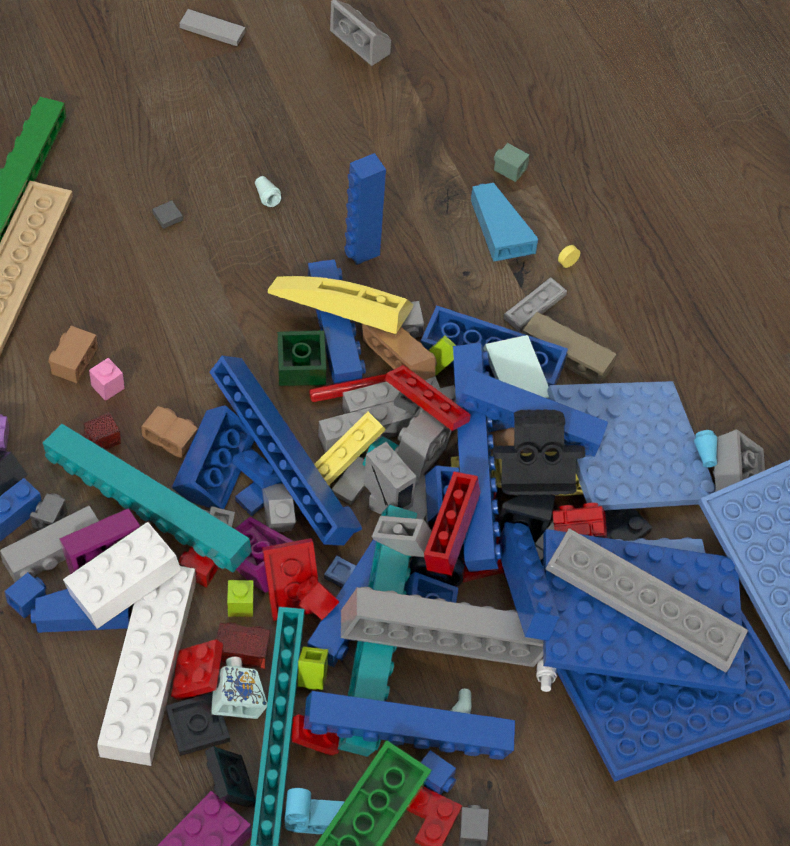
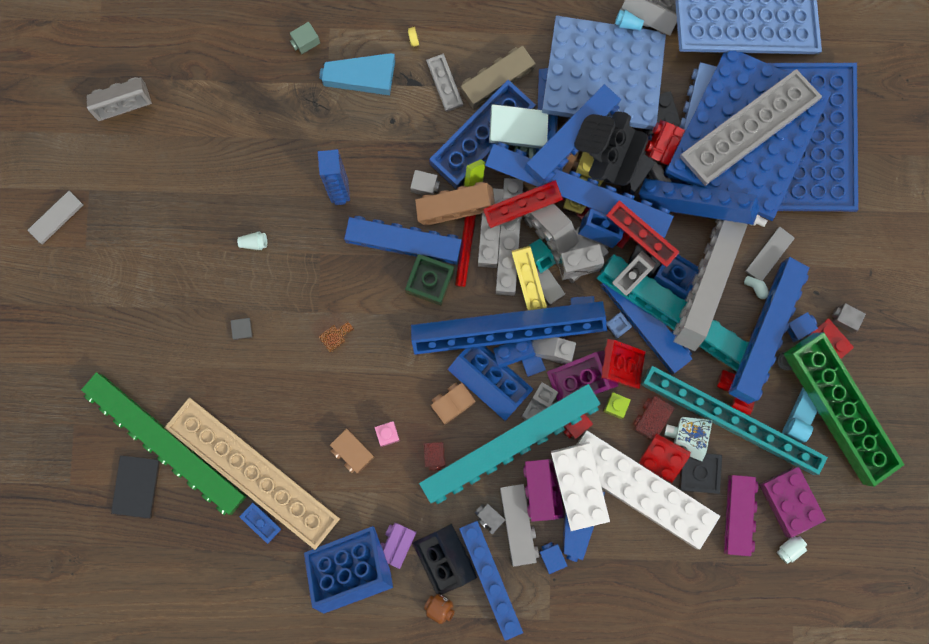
camera: 65 degrees left, 25 degrees up
(159, 787) = (740, 515): none -> magenta brick
(196, 296) = (334, 337): none -> clear orange plate
(230, 776) = (756, 466): black plate -> none
(312, 668) = (694, 376): lime brick -> none
(316, 598) = (645, 352): red brick -> none
(345, 300) = (399, 225): light yellow wedge -> none
(500, 705) = (770, 254): none -> light grey tile

